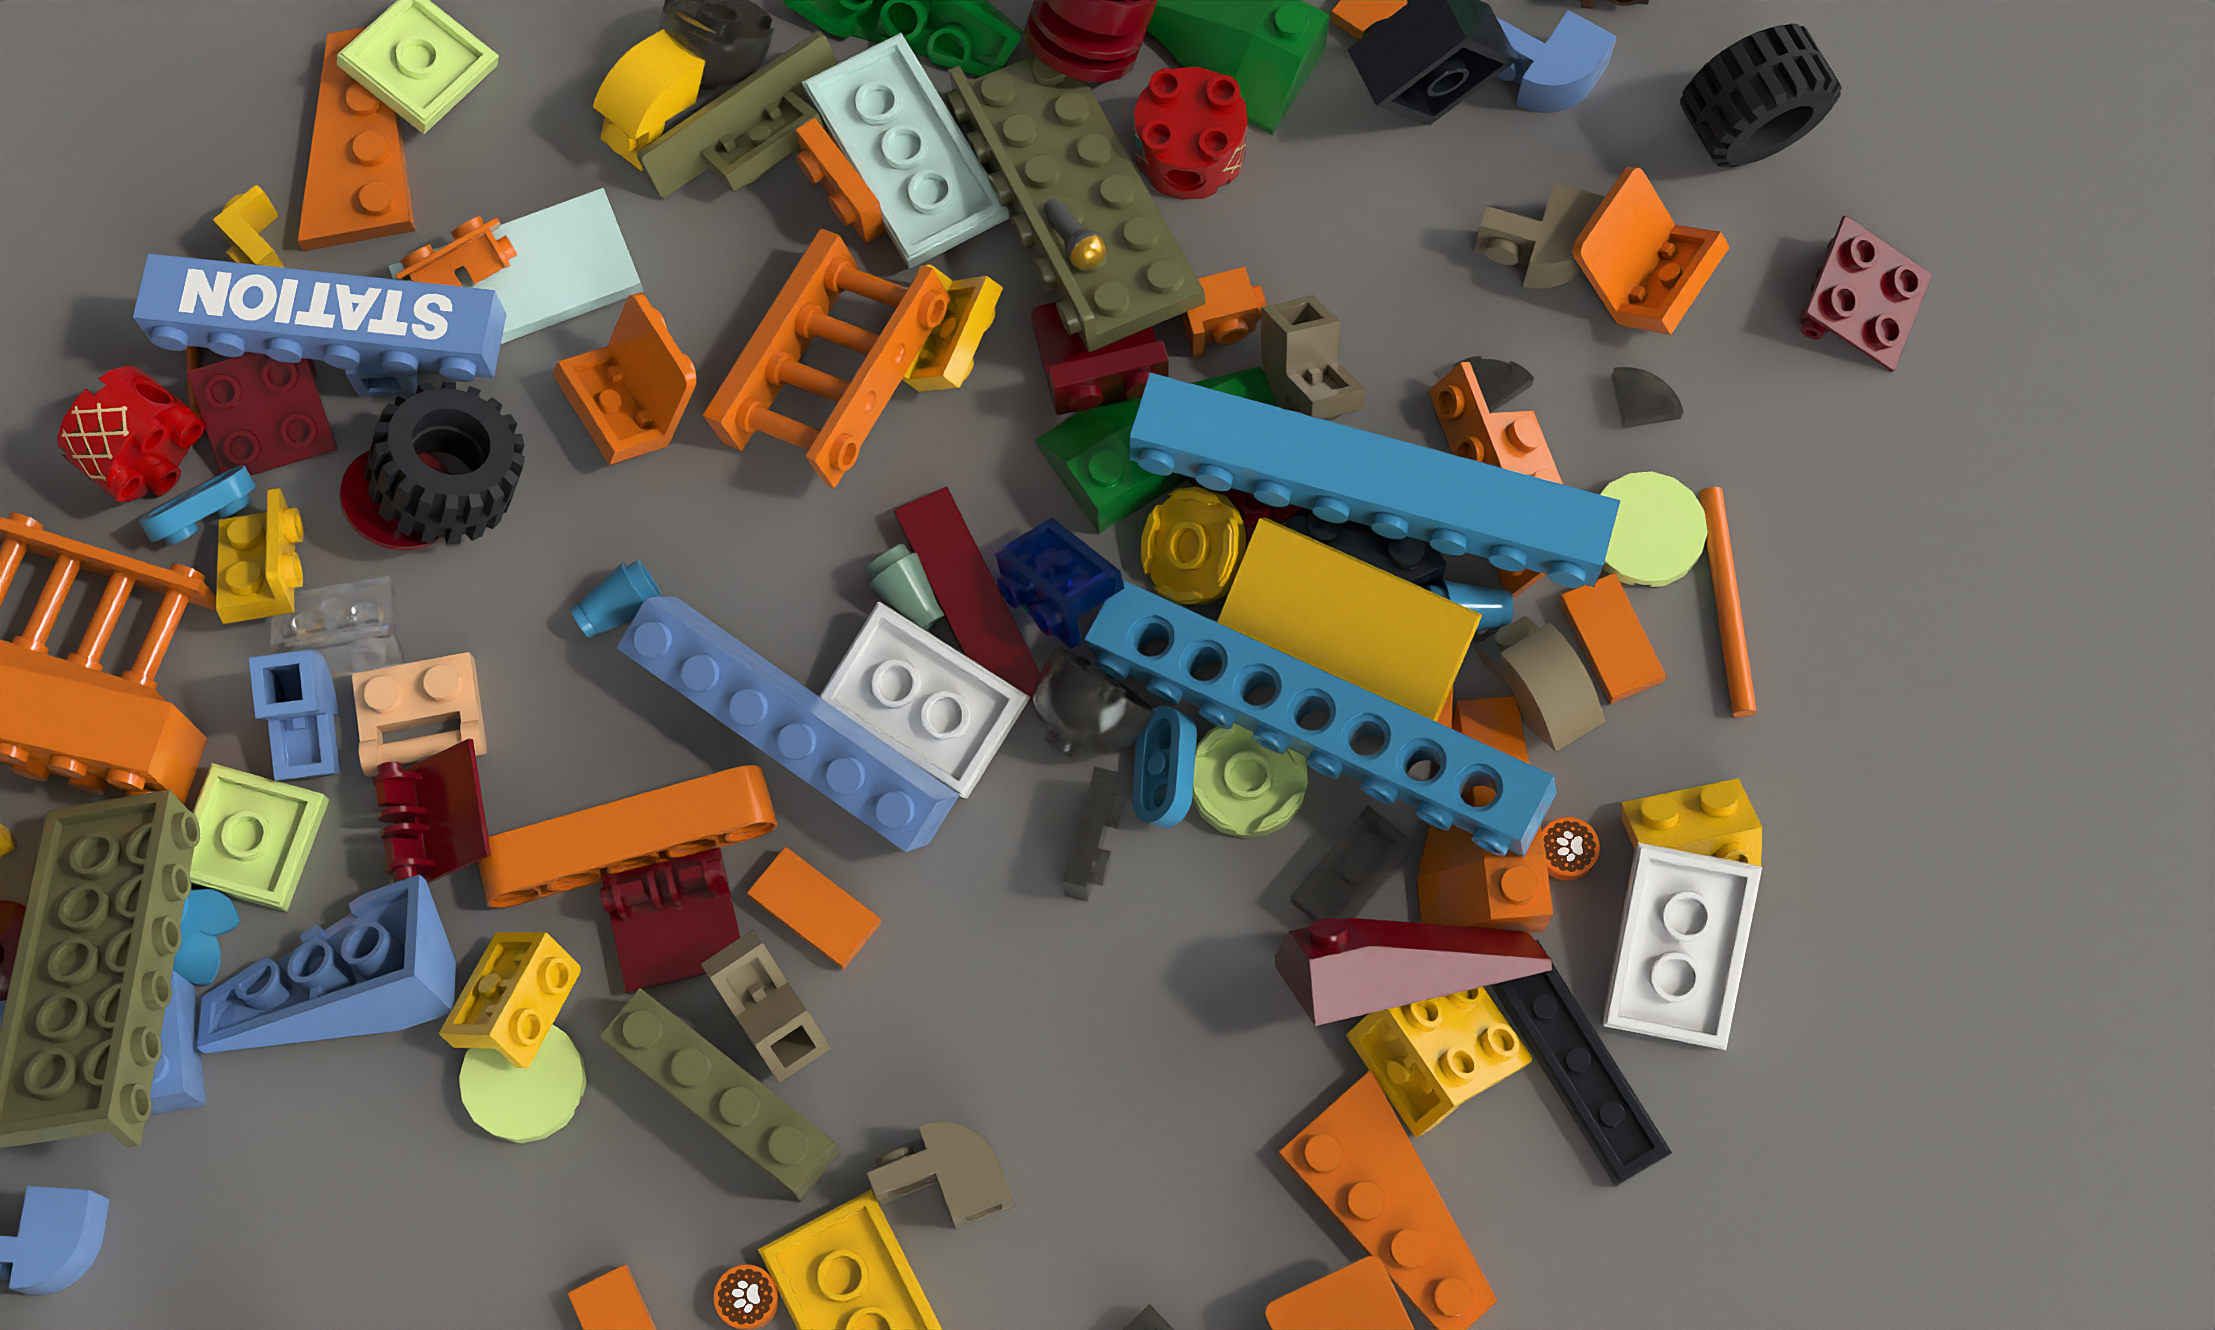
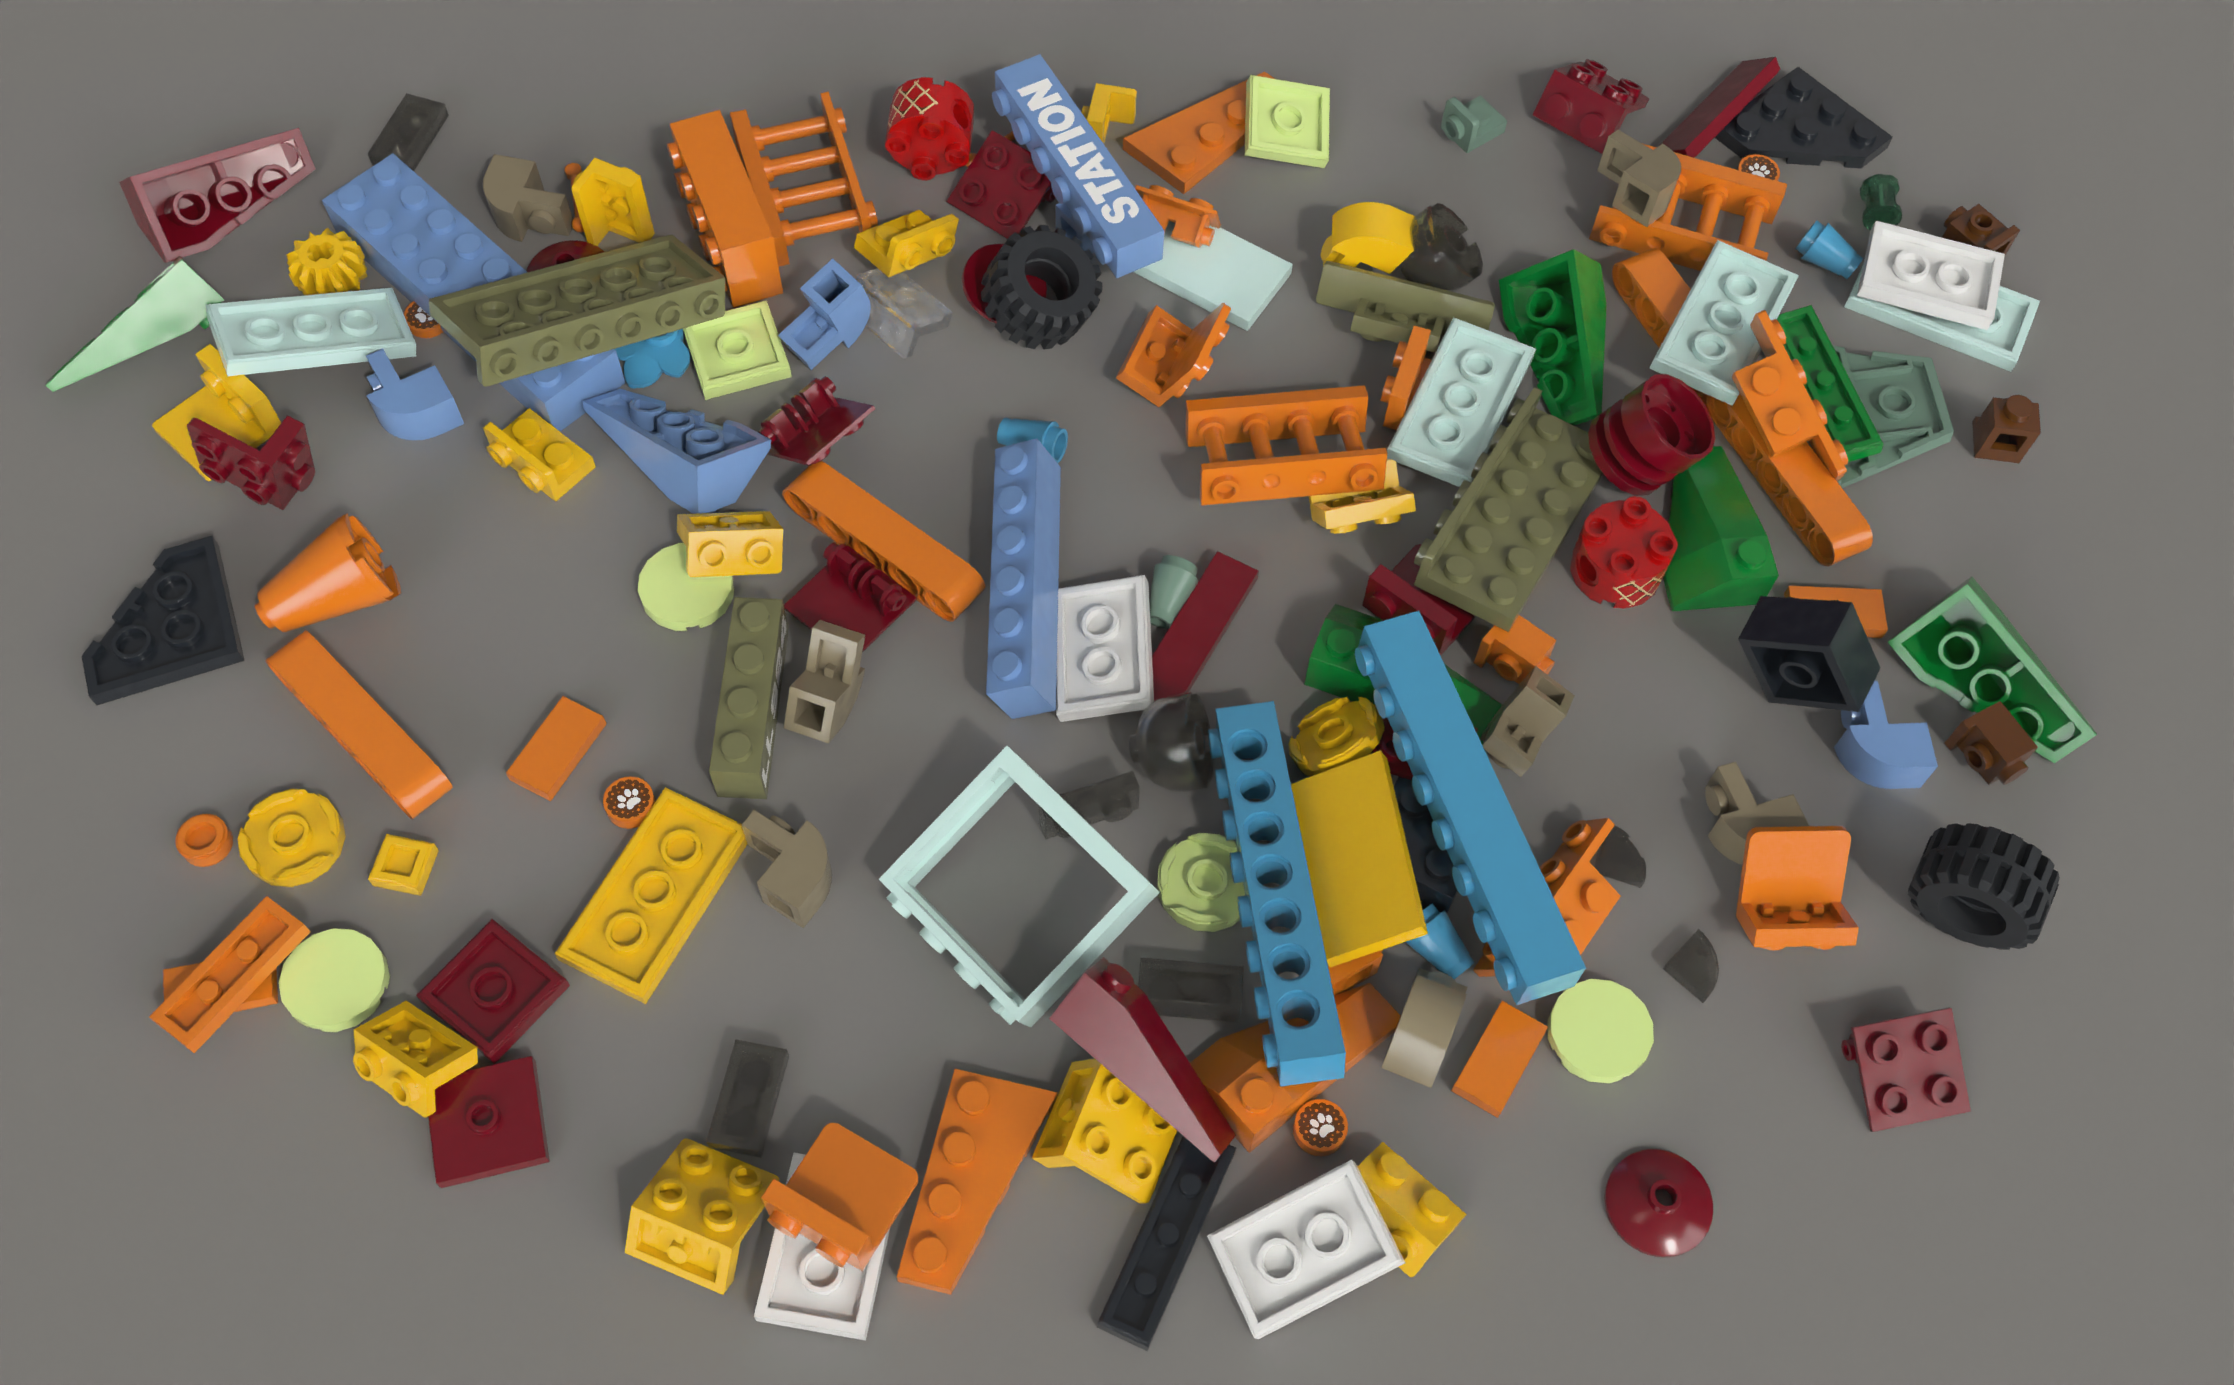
camera: 50 degrees right, 10 degrees down
(177, 517) = (934, 199): dark azure plate -> none
(224, 1137) = (539, 454): none -> yellow bracket
(415, 697) = (887, 376): light nougat plate -> none
(814, 908) = (917, 677): orange tile -> none
(1055, 578) = (1243, 664): clear blue bracket -> none
(1083, 246) = (1478, 526): piece -> none
(1164, 768) = (1169, 821): dark azure plate -> none
(1183, 1063) = (941, 935): none -> light aqua window
(1728, 603) = (1593, 1123): orange bar -> none
(1823, 624) = (1646, 1222): none -> dark red dish

